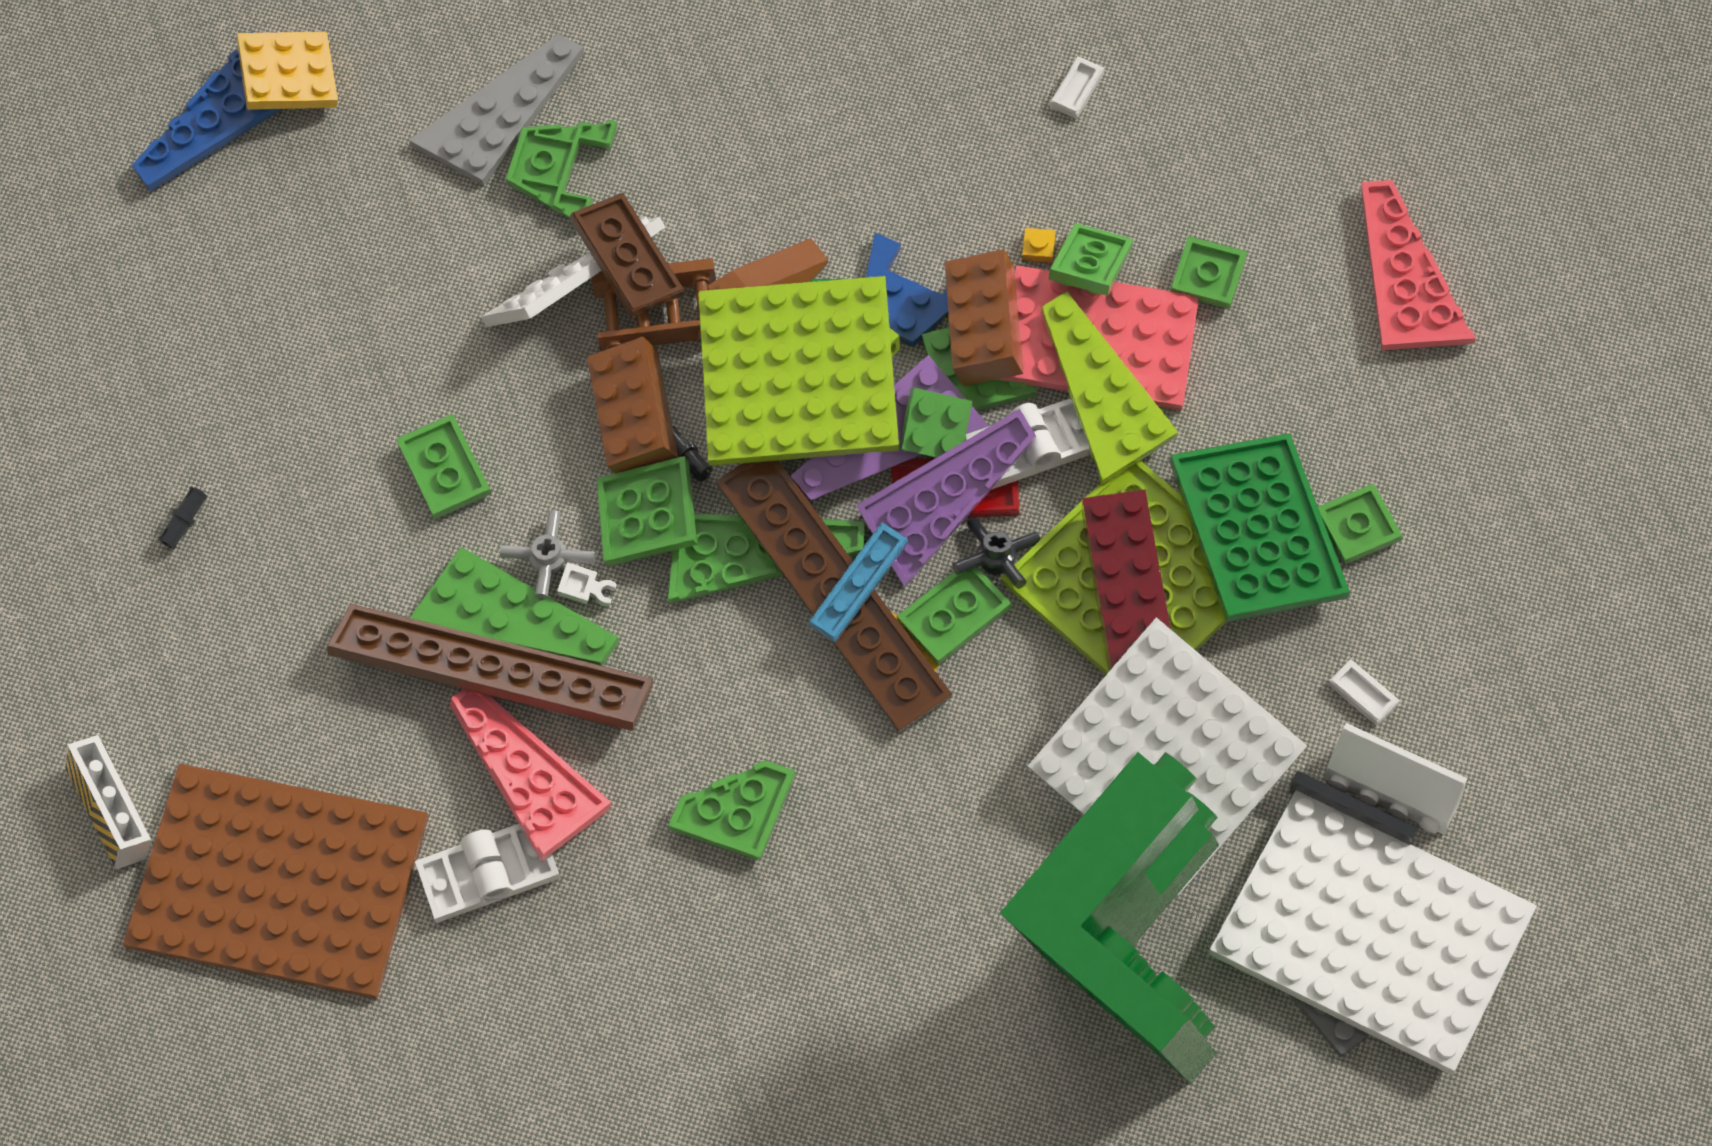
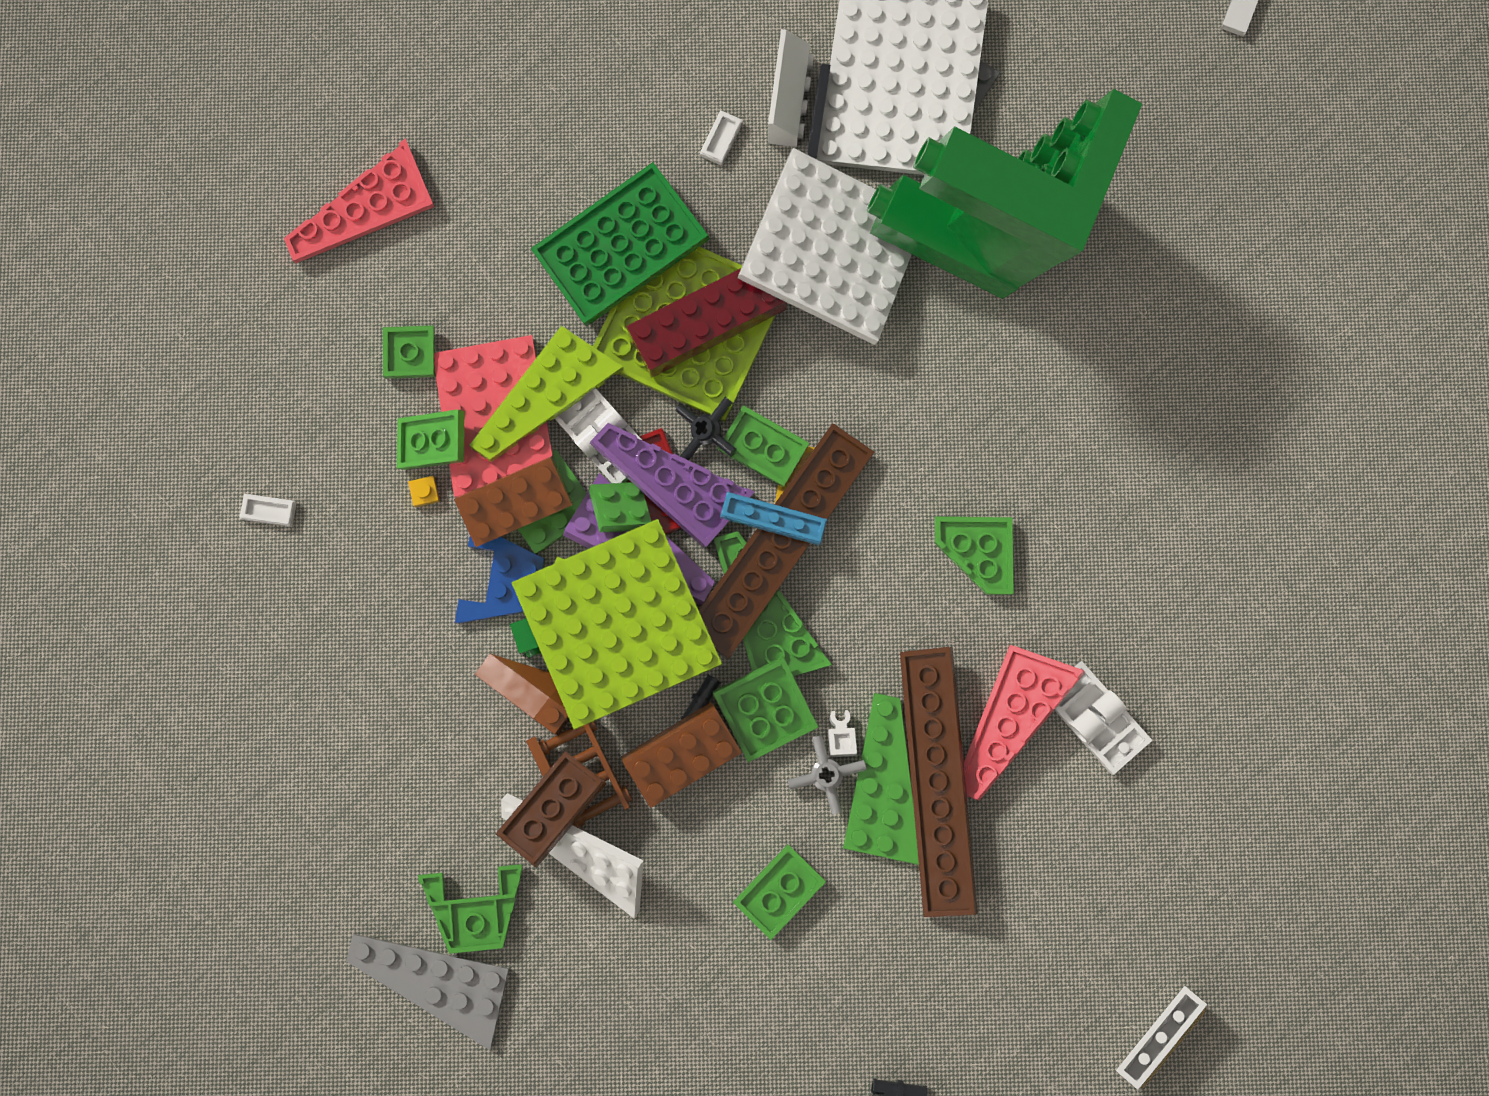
camera: 115 degrees left, 15 degrees up
(277, 881) = (1164, 879): dark orange plate -> none
(1359, 524) = (588, 177): bright green plate -> none

